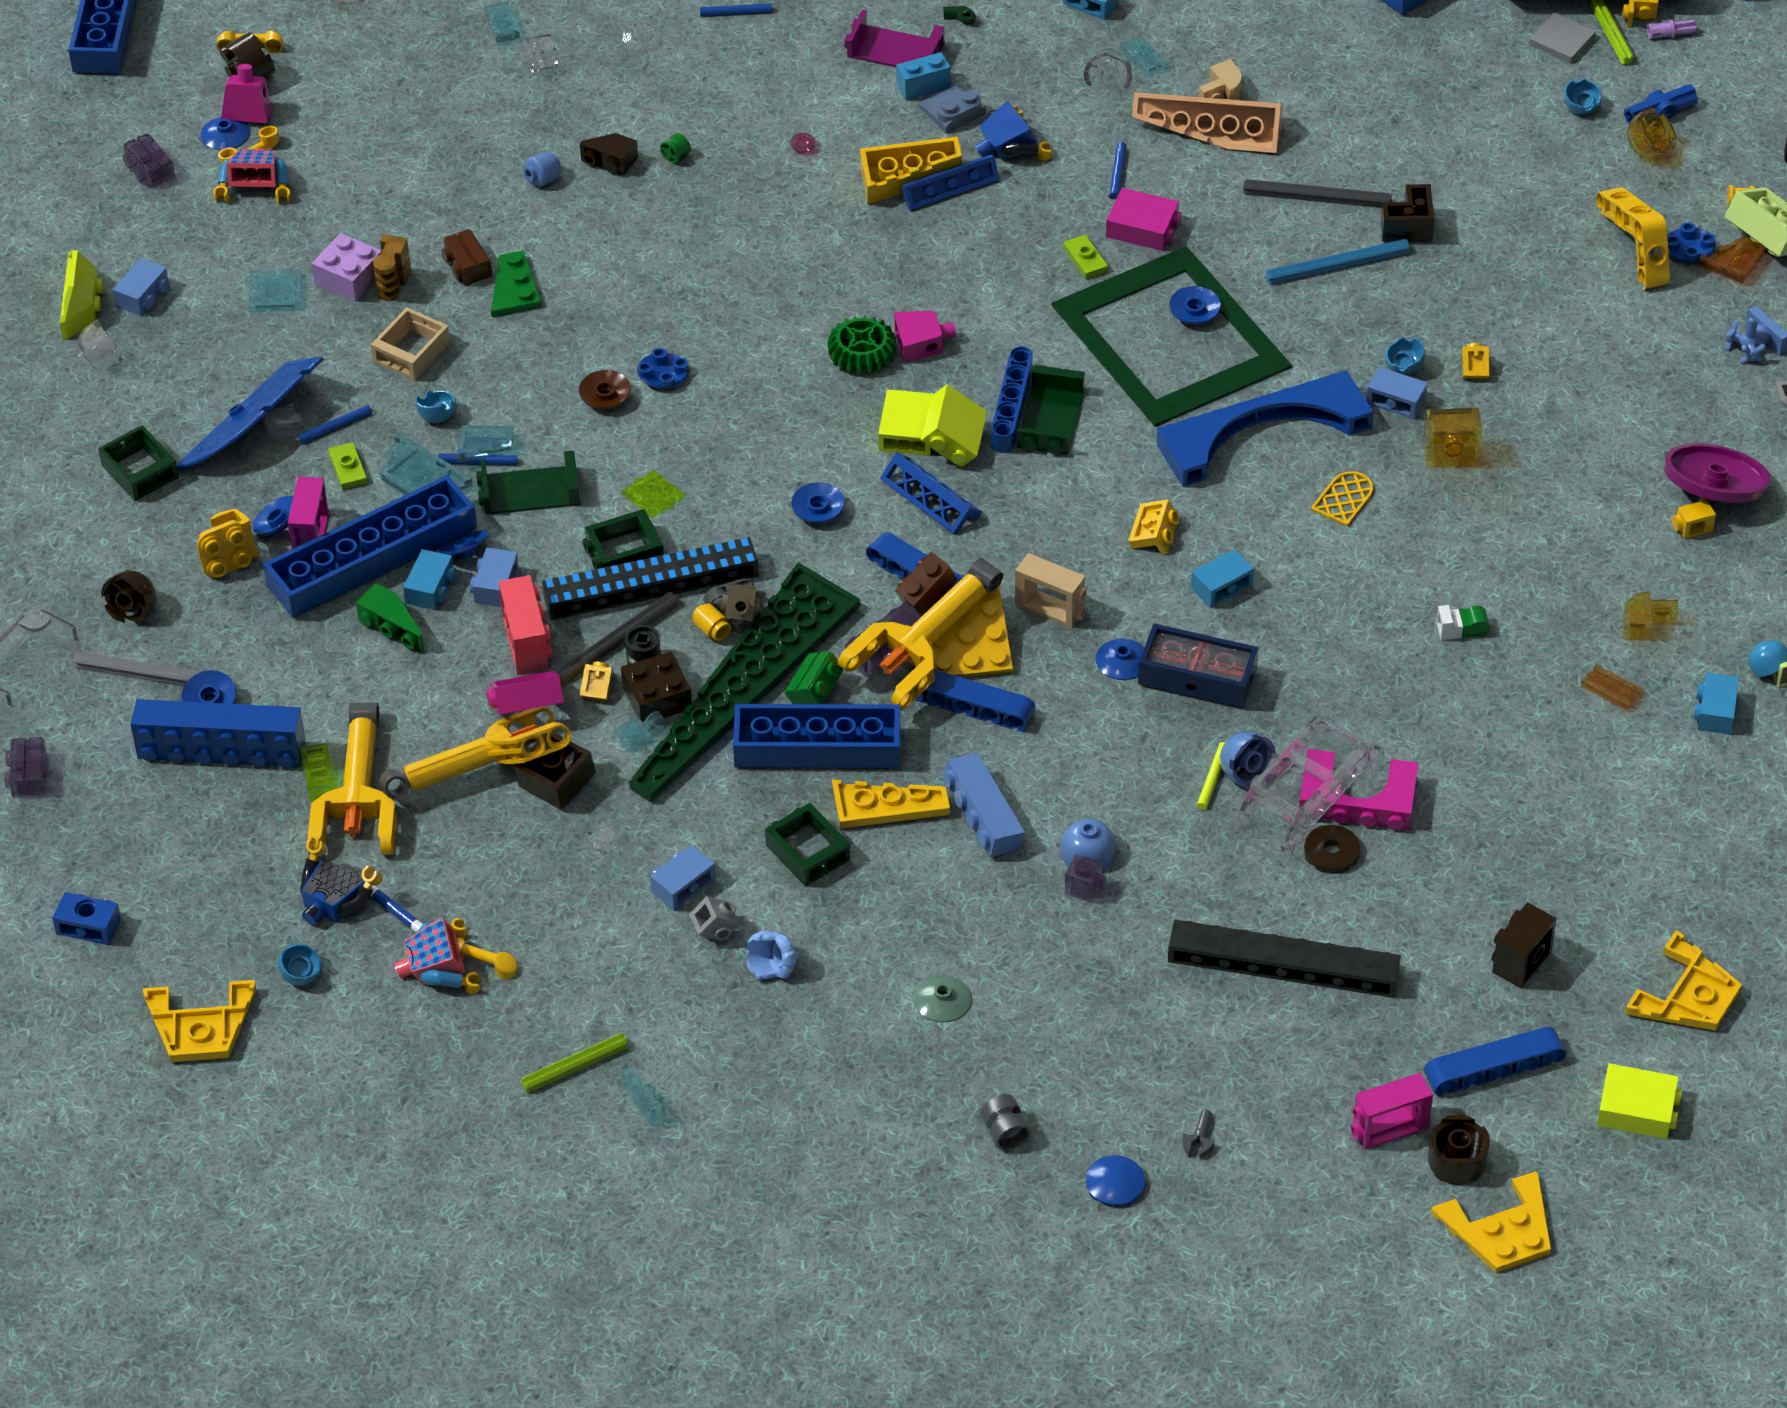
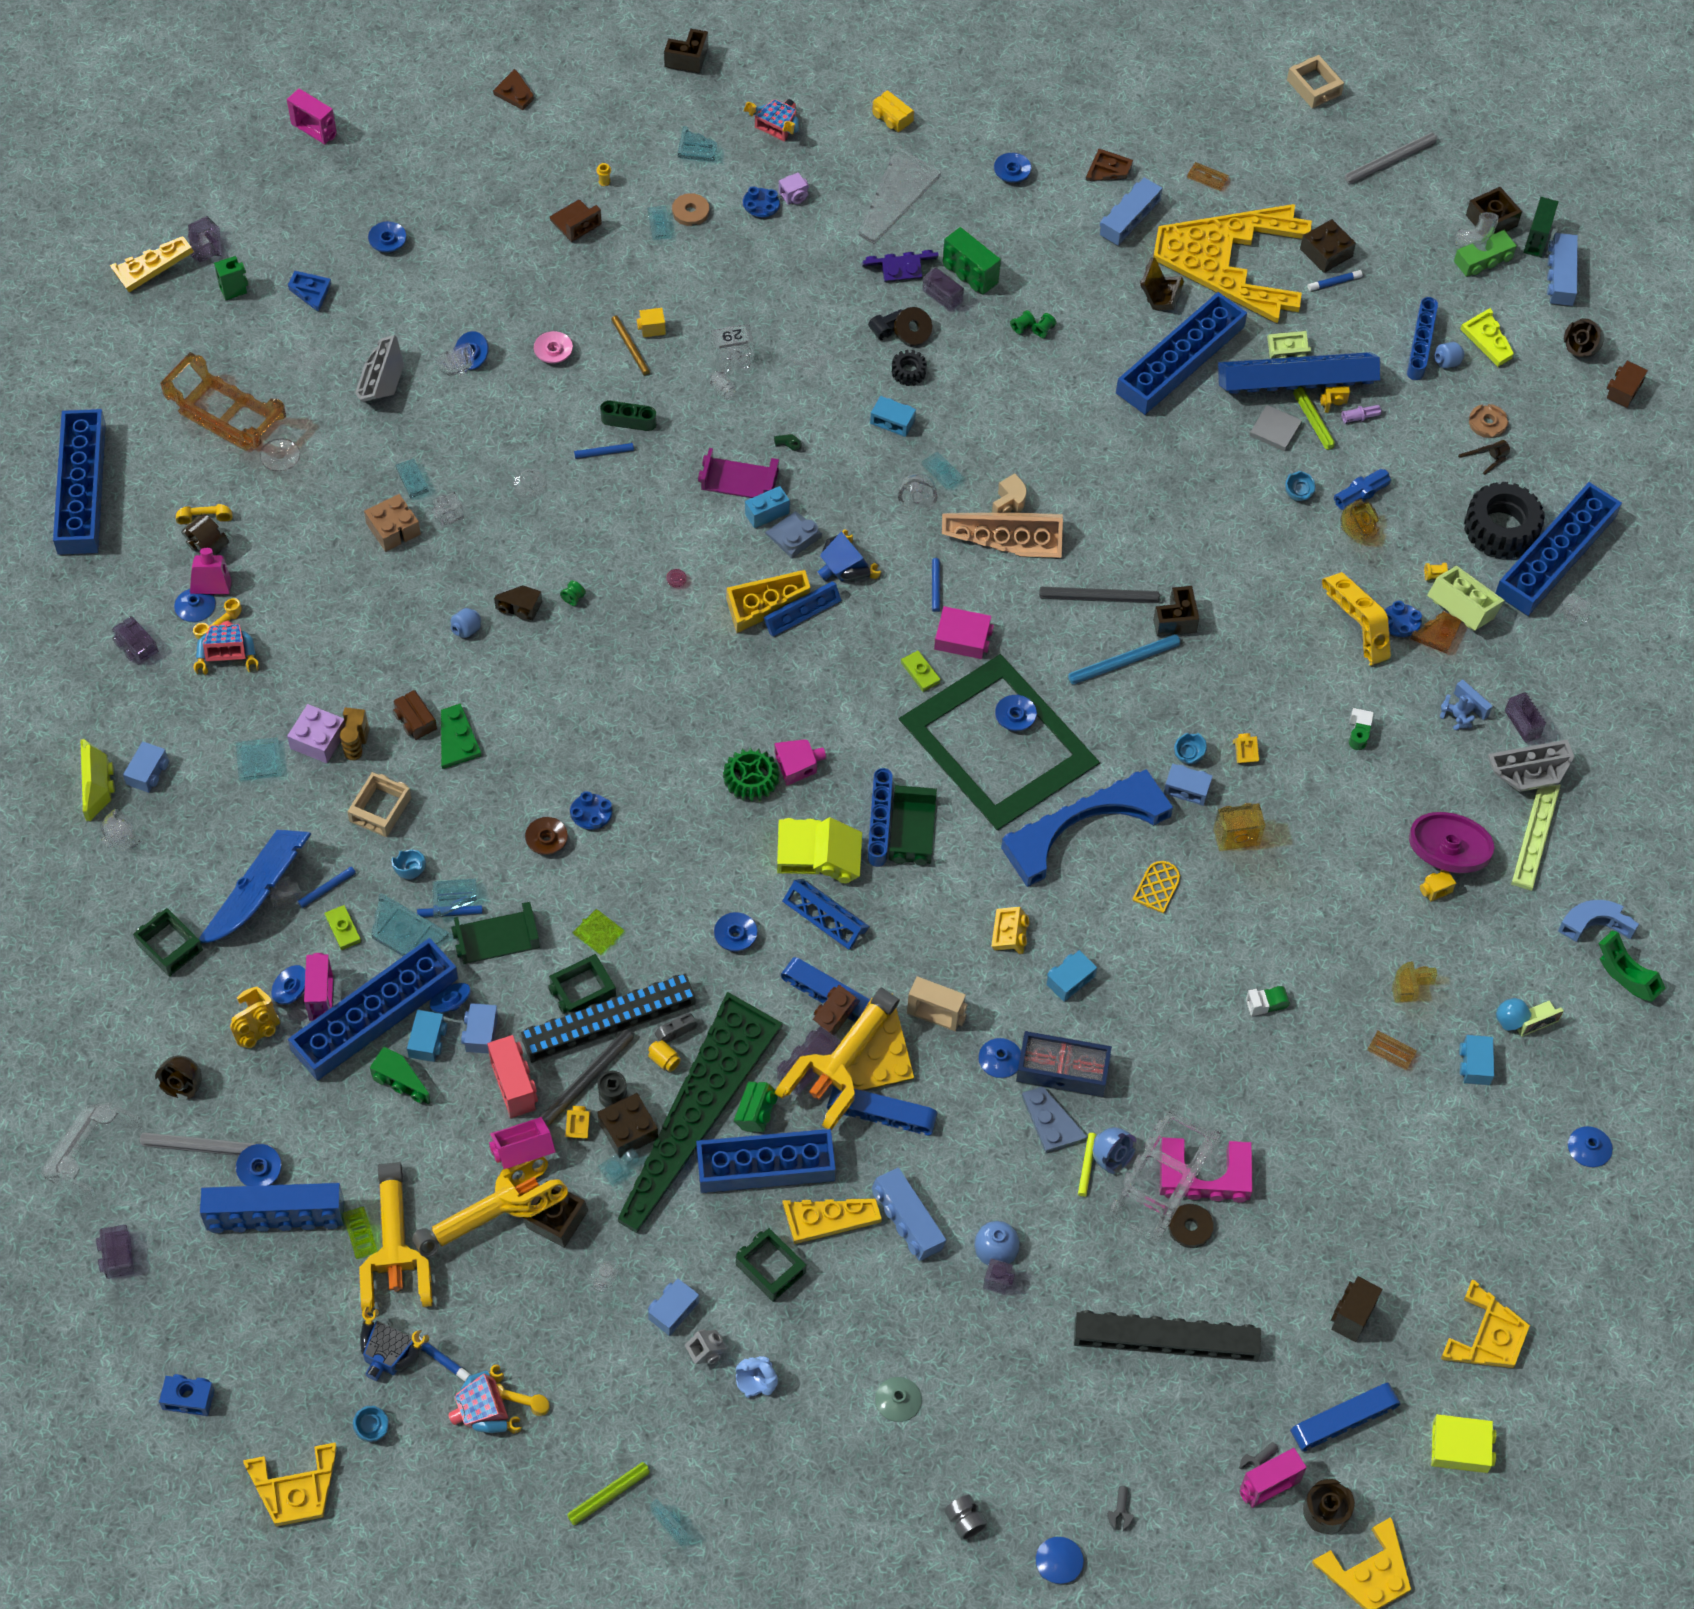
camera: 10 degrees left, 10 degrees up
(464, 56) = (388, 518): none -> medium nougat piece
(740, 593) = (686, 1039): dark tan brick -> none
(1175, 728) = (1051, 1121): none -> sand blue wing
(1623, 348) = (1361, 731): none -> leg

